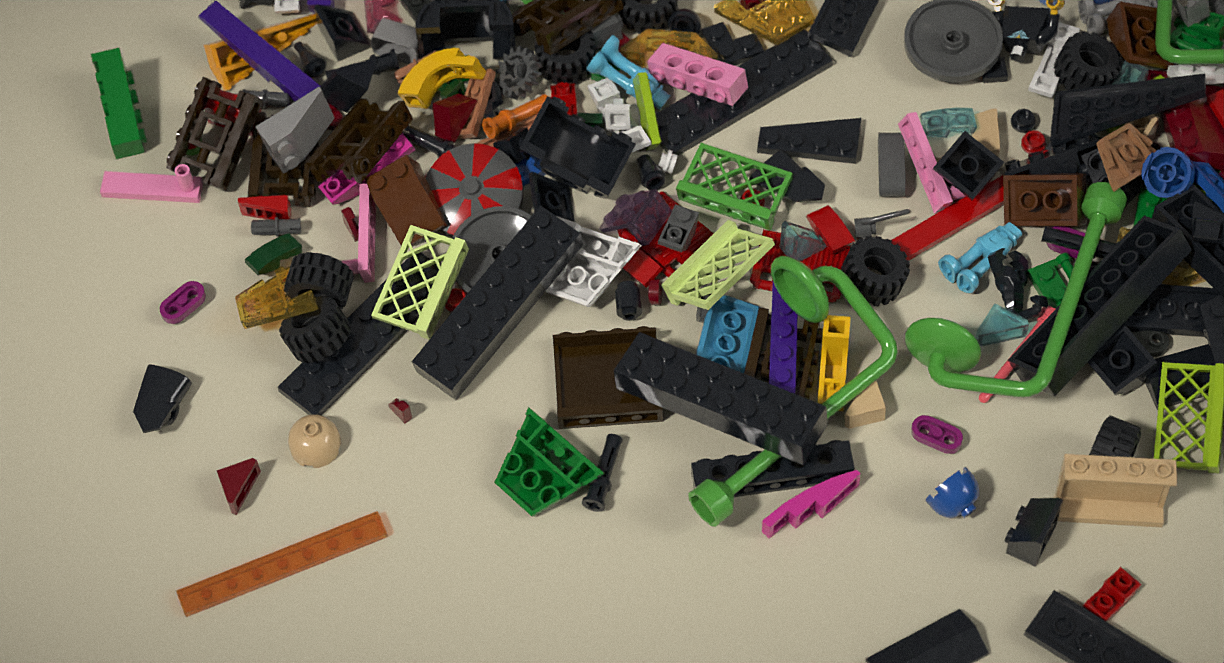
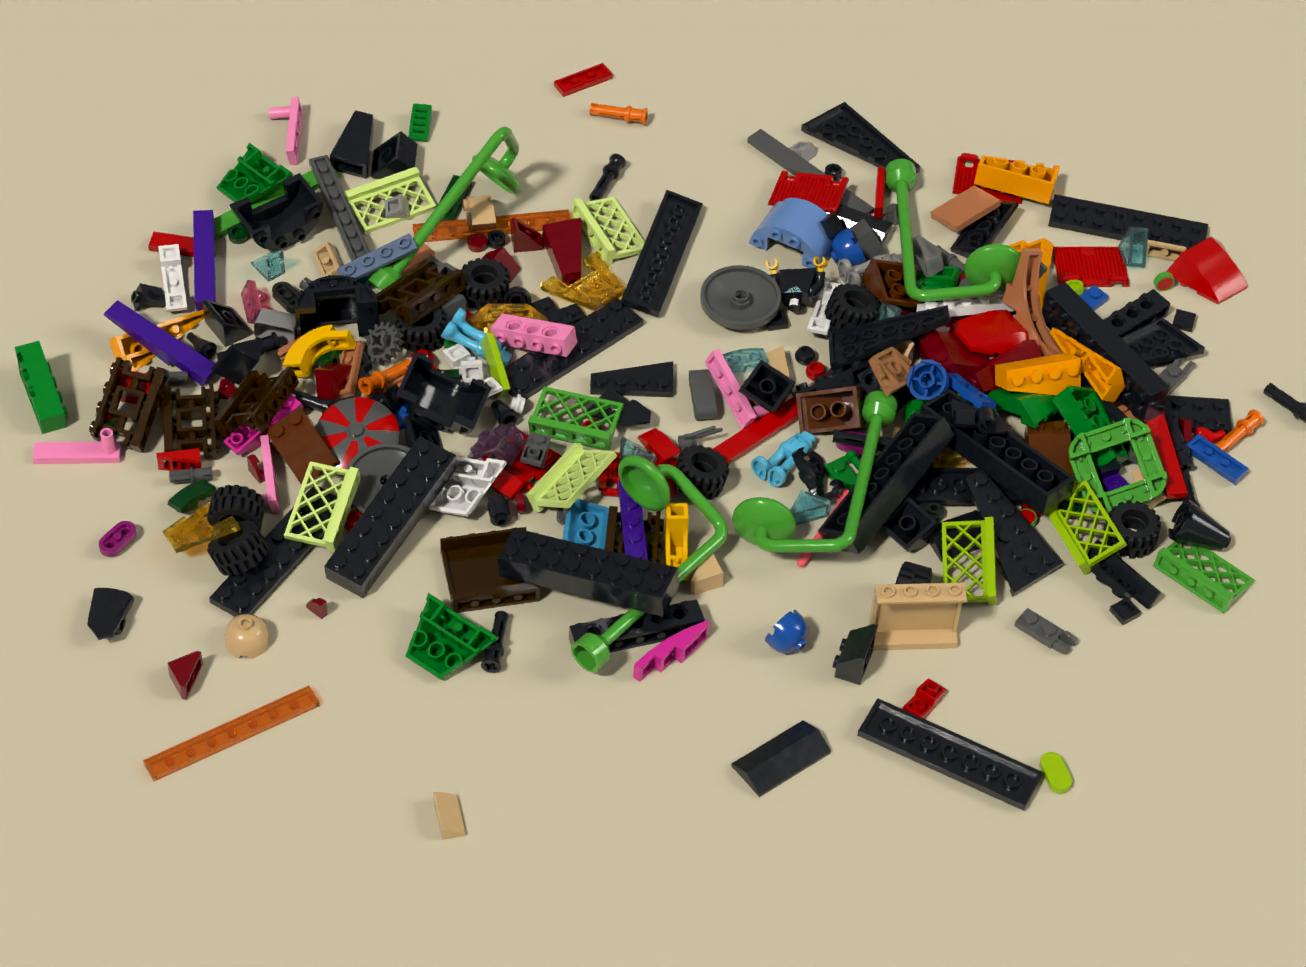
camera: 15 degrees left, 10 degrees down
(296, 129) = (201, 394): light grey slope -> none
(938, 433) = (767, 592): magenta plate -> none

